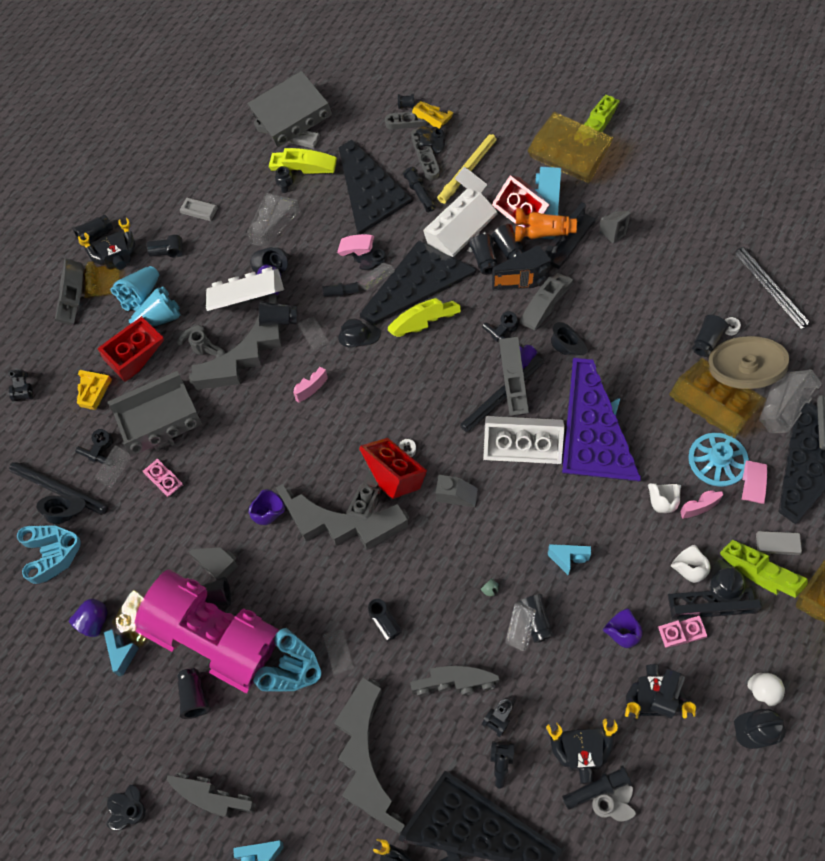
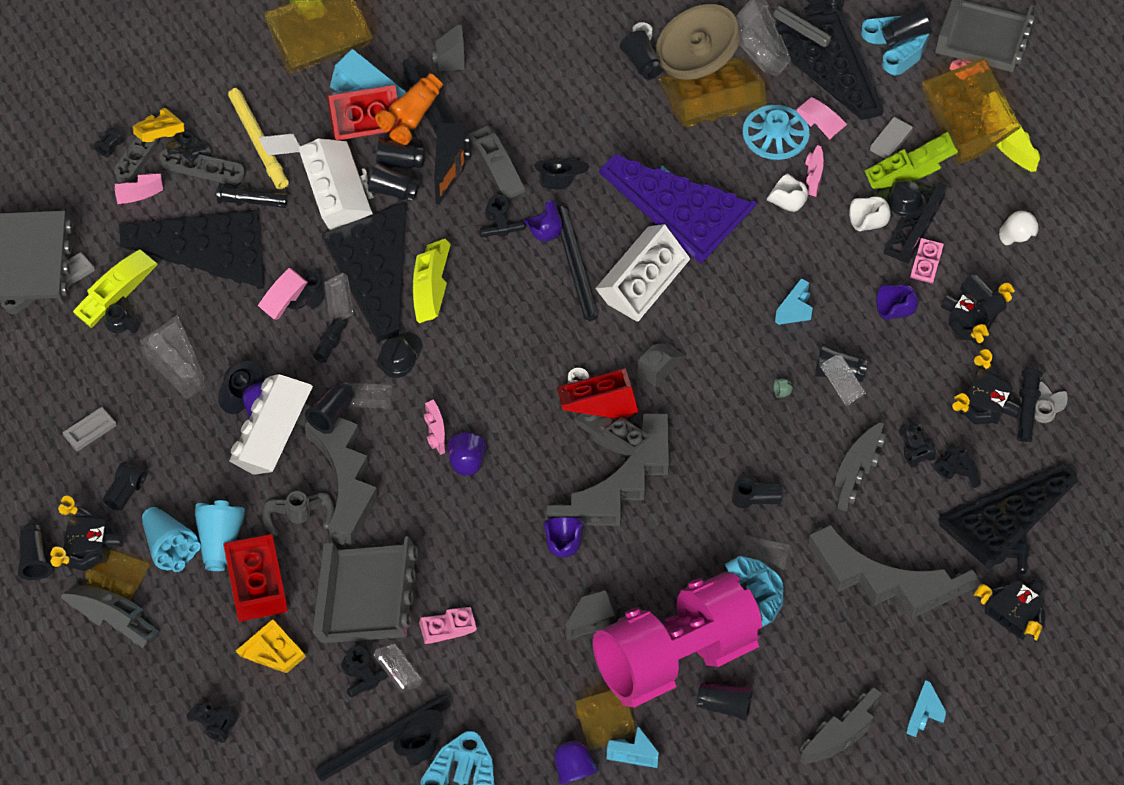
camera: 65 degrees left, 5 degrees down
(300, 414) = (466, 453): none -> dark purple hair
(384, 134) = (146, 187): none -> bright pink slope
(513, 375) = (573, 233): dark grey slope -> none
(759, 729) = (1048, 258): black piece -> none

